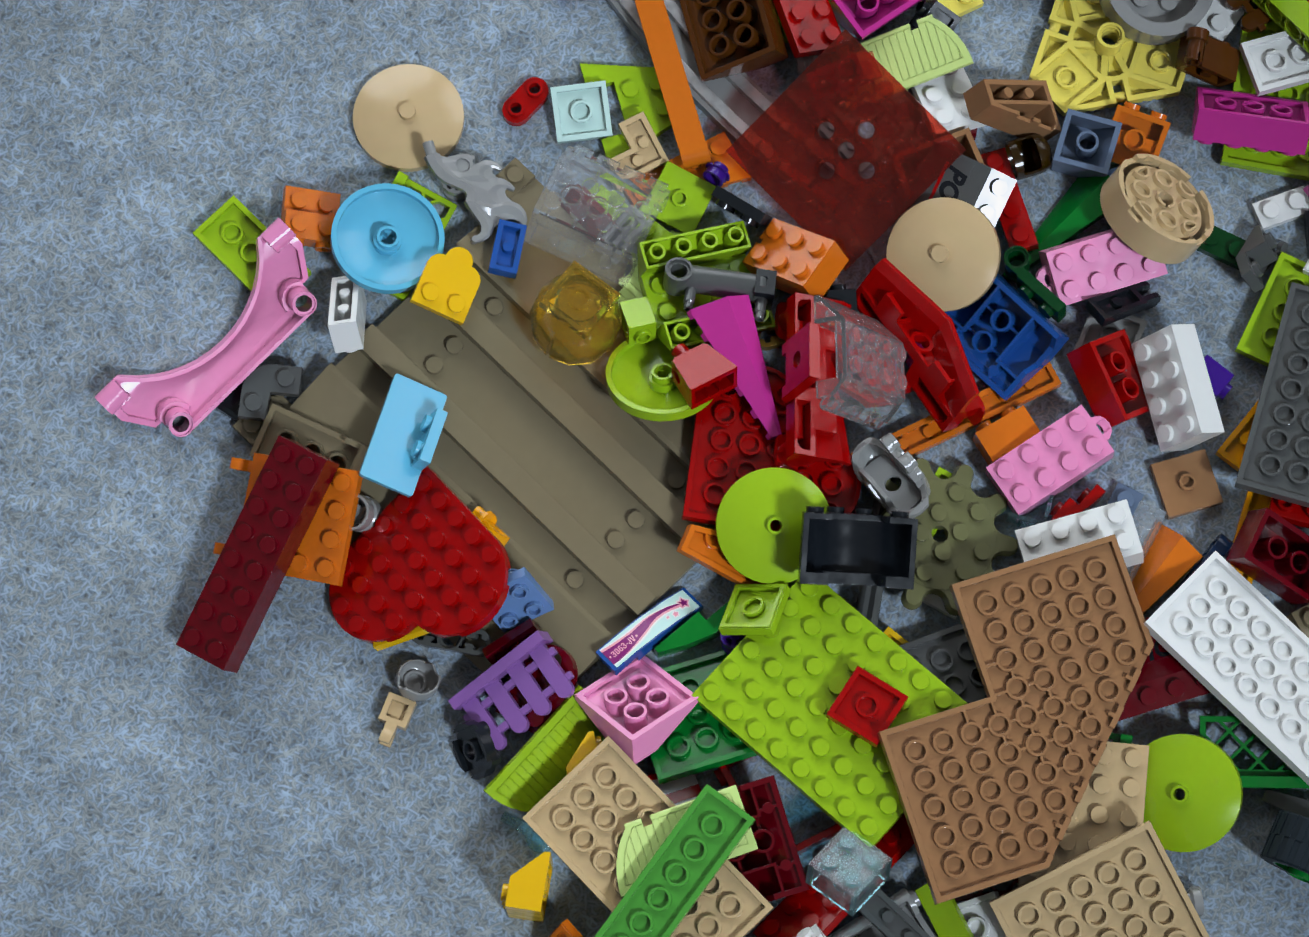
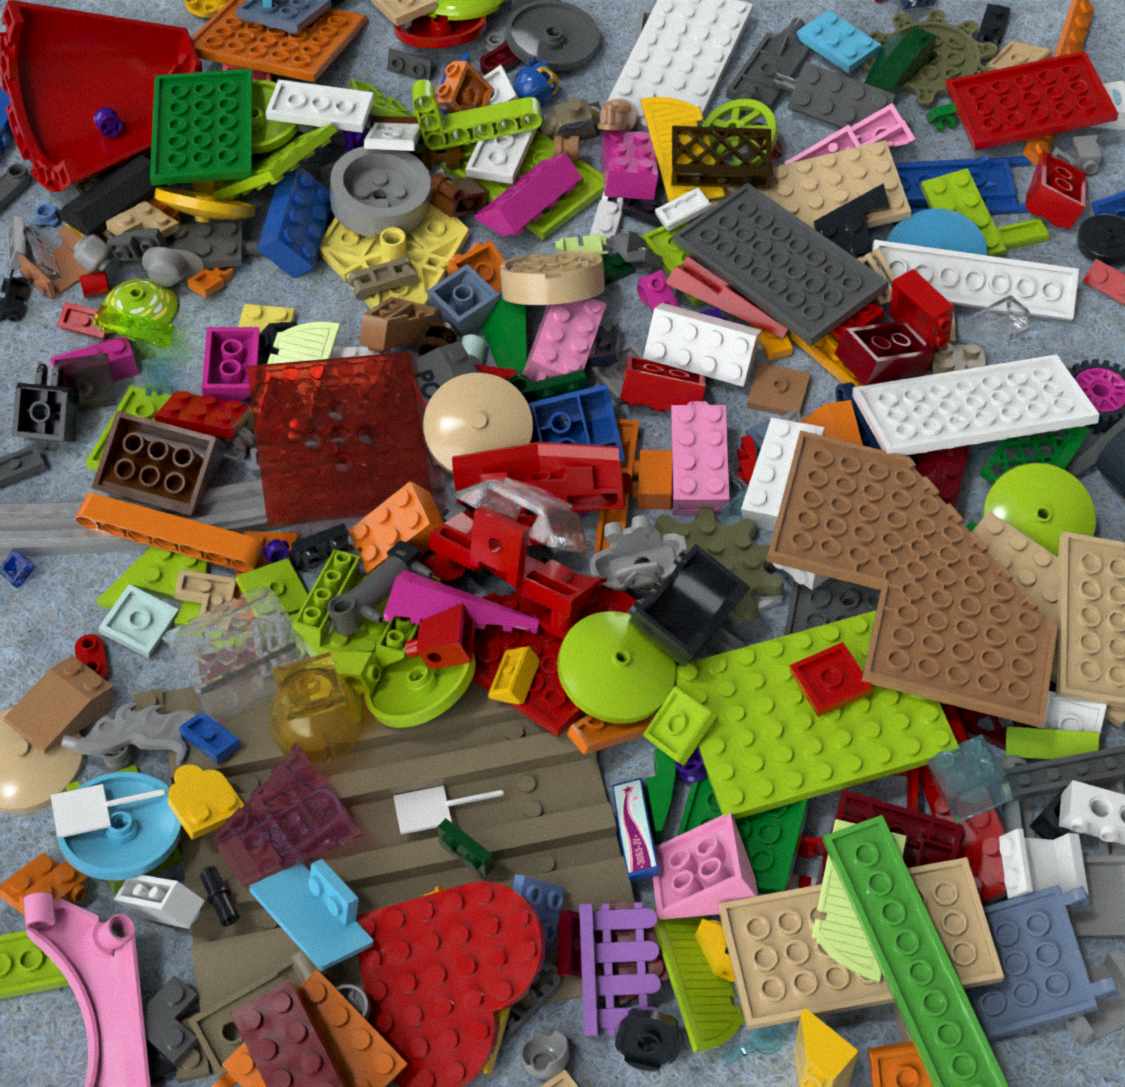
camera: 55 degrees left, 20 degrees down
(379, 203) = (87, 809): none -> white piece
(379, 354) = (219, 896): none -> black axle
(463, 112) = (61, 704): none -> medium nougat slope
(471, 362) = (284, 822): none -> clear pink wedge
(534, 522) = (472, 853): none -> dark green plate
(561, 457) = (429, 807): none -> white piece
(712, 449) = (514, 676): none -> yellow slope
(1041, 188) = (475, 347): none -> light aqua brick
(1063, 57) = (382, 277): none -> dark tan plate
(1217, 315) = (654, 291): none -> dark pink plate
(1235, 217) = (591, 244): none -> yellowish green hinge
(1251, 343) = (705, 285): none -> wedge

